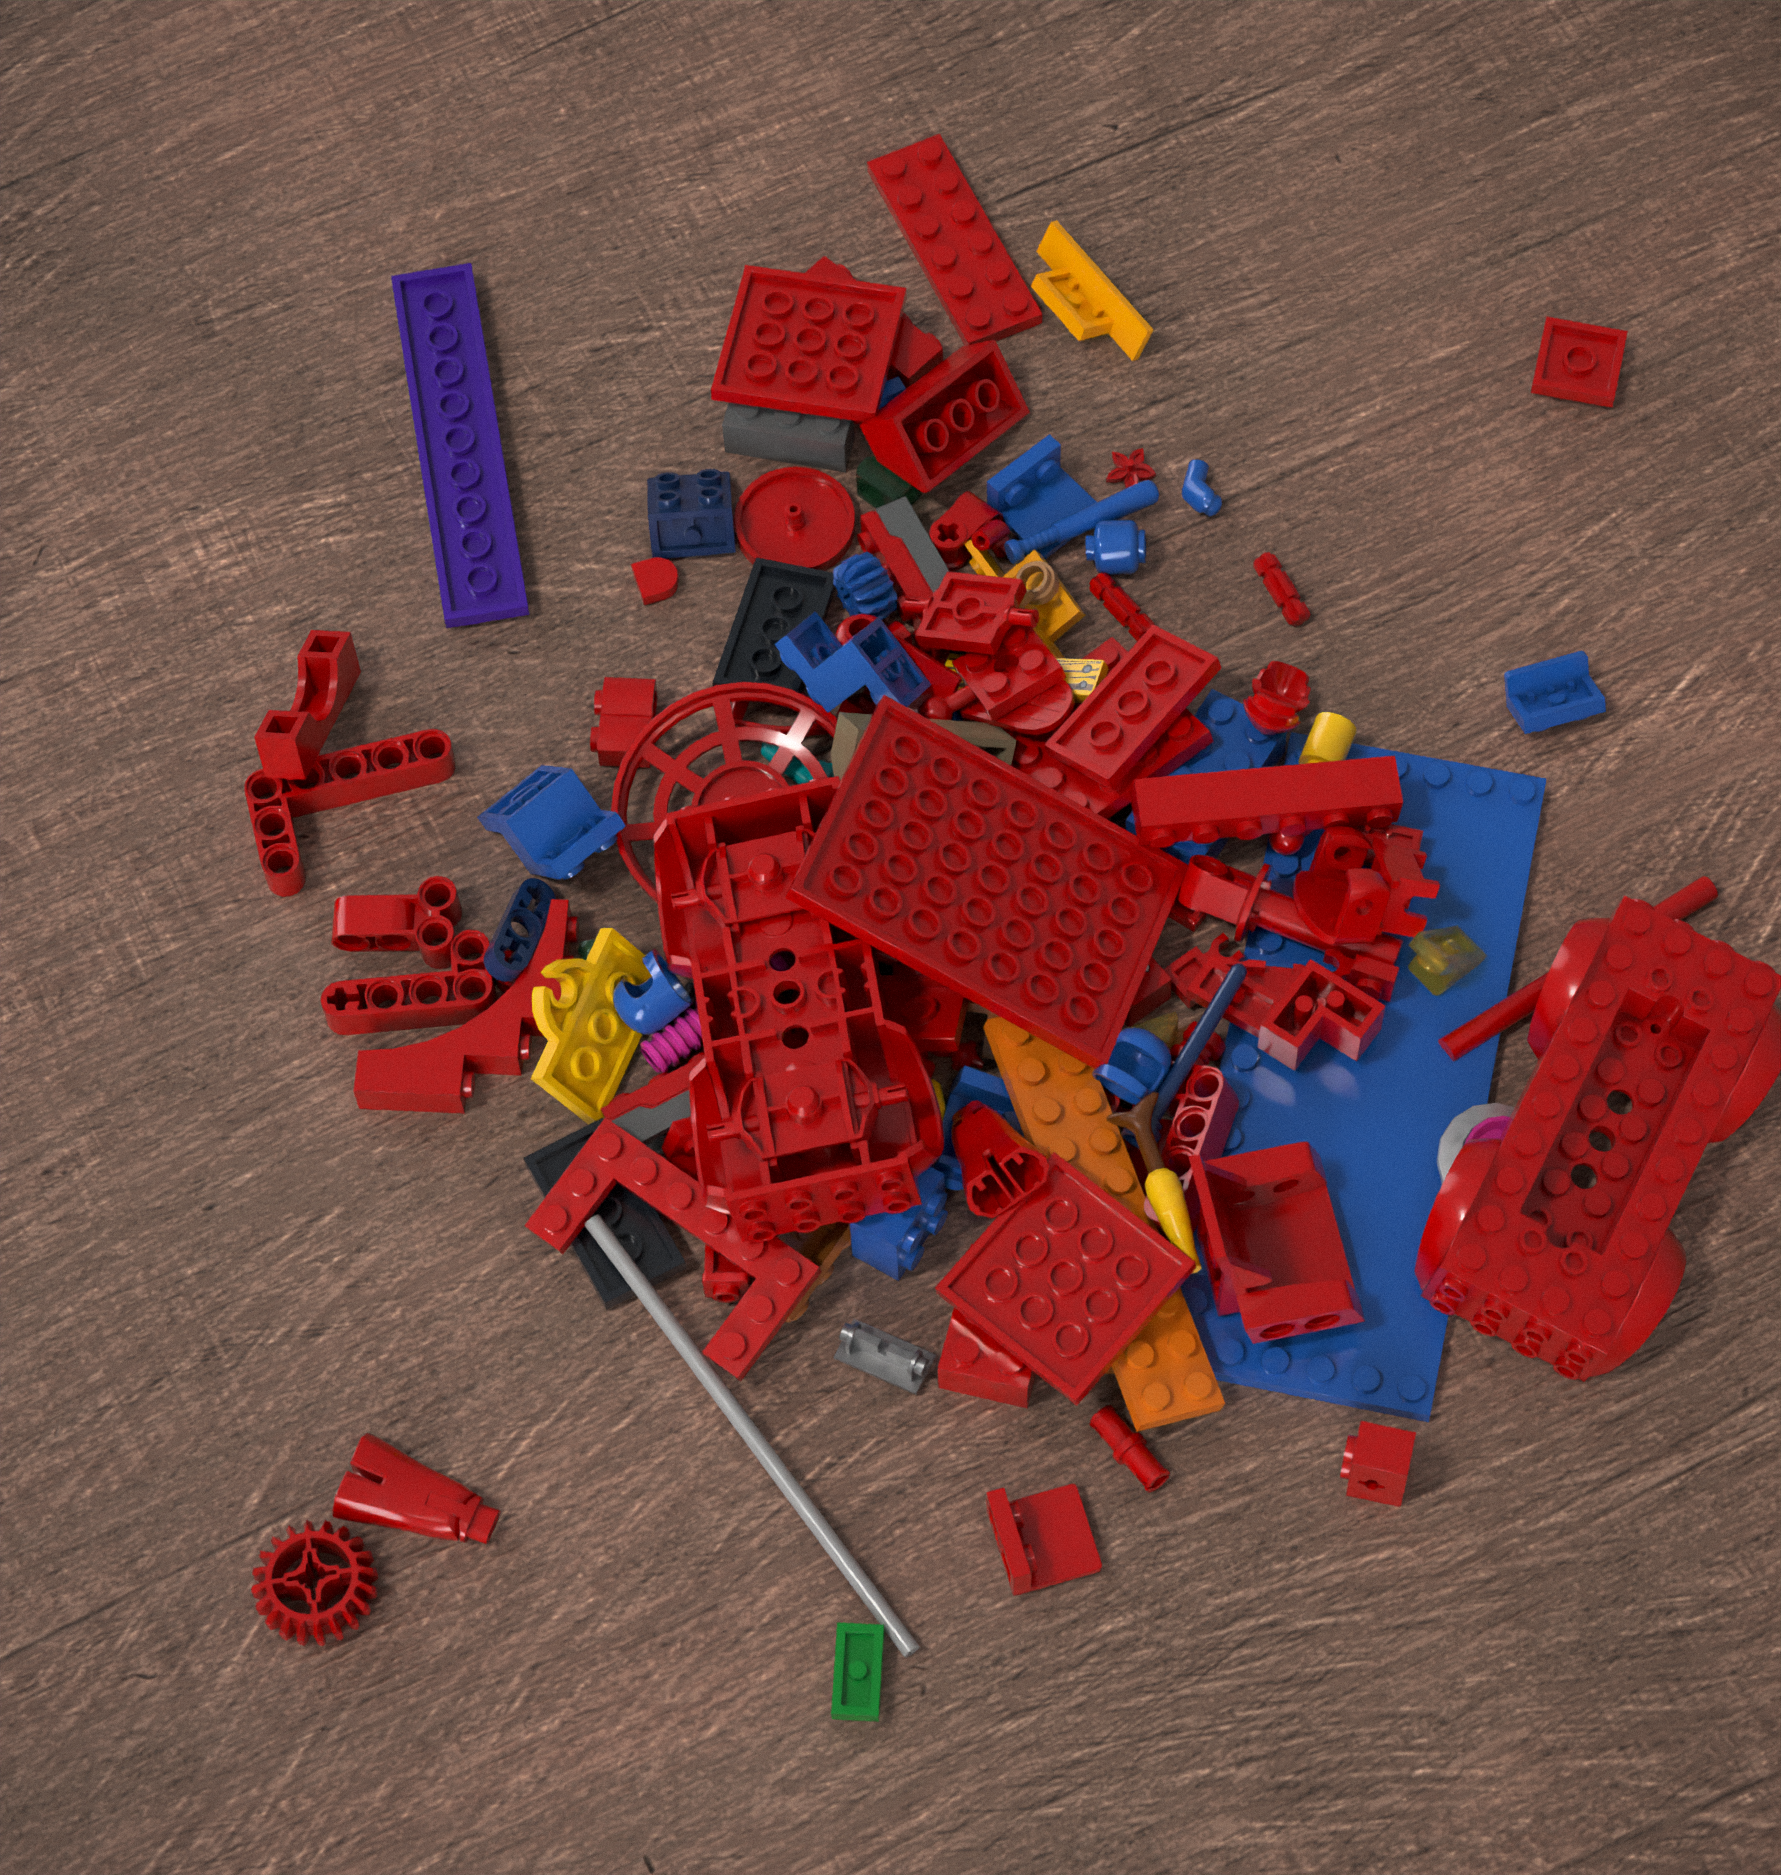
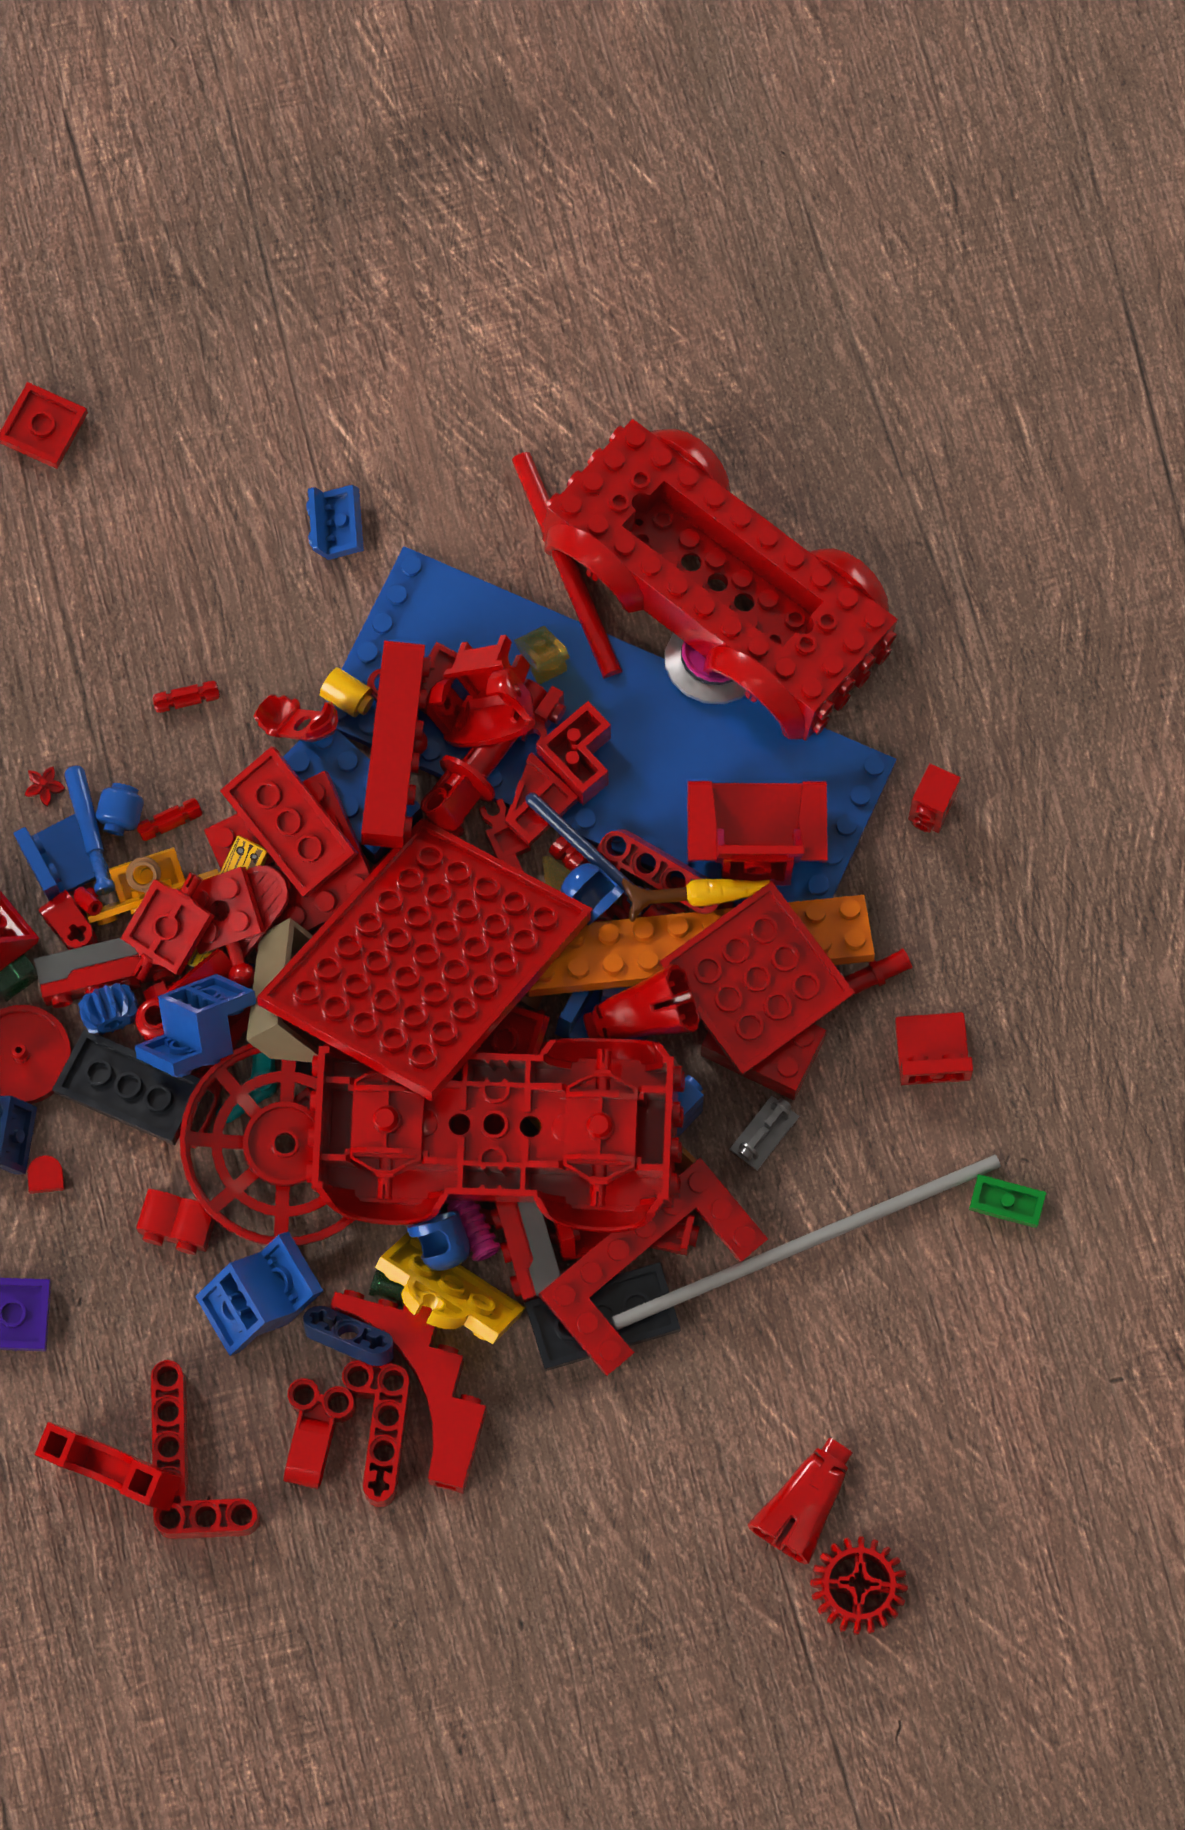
camera: 80 degrees left, 10 degrees up
(1197, 492) = (79, 739): blue arm -> none

